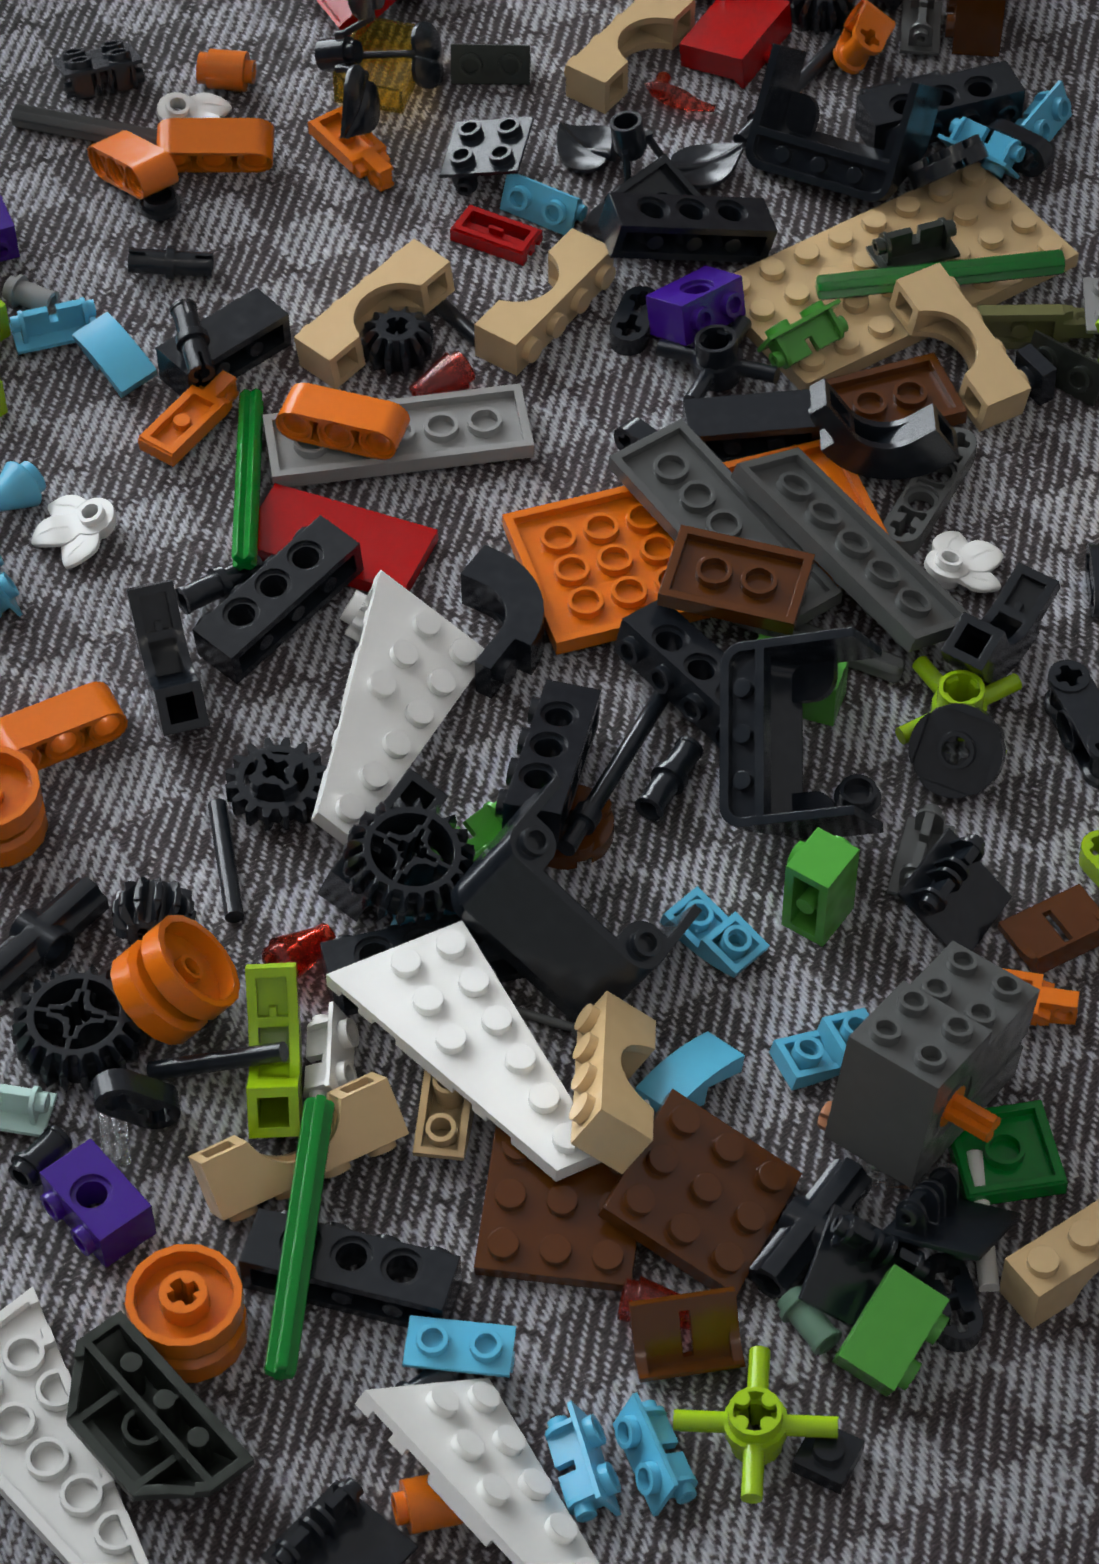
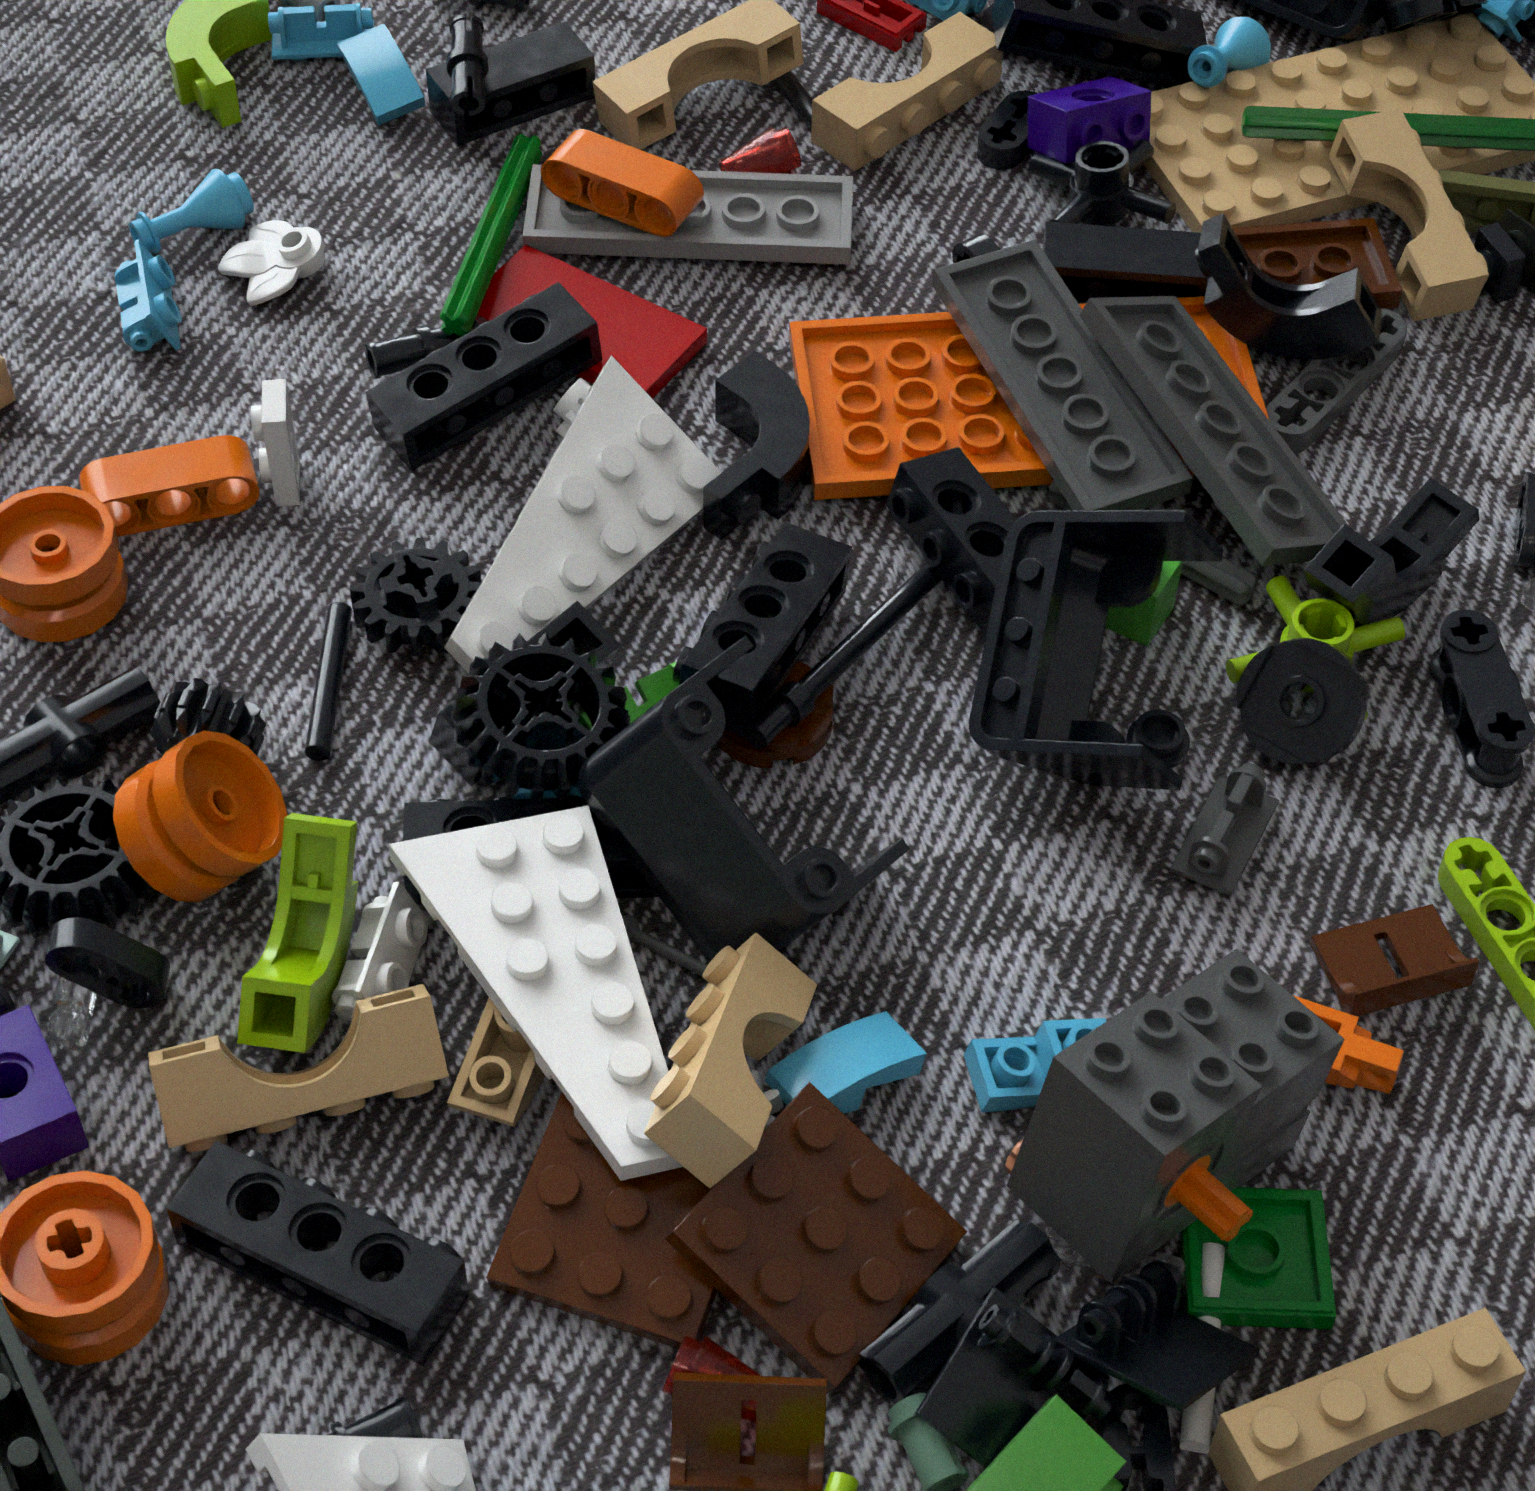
camera: 10 degrees right, 0 degrees up
(135, 671) = (280, 459): none -> white plate
(166, 659) = (327, 421): black arch -> none
(189, 419) = (446, 157): orange hinge -> none
(218, 1061) = (229, 933): black bar -> none
(298, 947) = (378, 808): clear red cone -> none
(299, 1239) = (248, 1199): green axle -> none
(397, 341) = (719, 108): black gear -> none
(460, 1346) = (431, 1389): medium azure hinge -> none
(669, 778) = (917, 674): black pin -> none
(716, 938) = (930, 889): medium azure slope -> none
(736, 580) = (1056, 439): reddish brown plate -> none
(798, 221) = (1237, 46): none -> medium azure piece
(817, 324) = (1193, 173): bright green hinge -> none
(819, 885) = (1078, 844): bright green brick -> none
(903, 248) = (1357, 90): pearl dark grey hinge -> none
(955, 891) = (1260, 885): black hinge -> none
(963, 562) = (1356, 471): white plate -> none

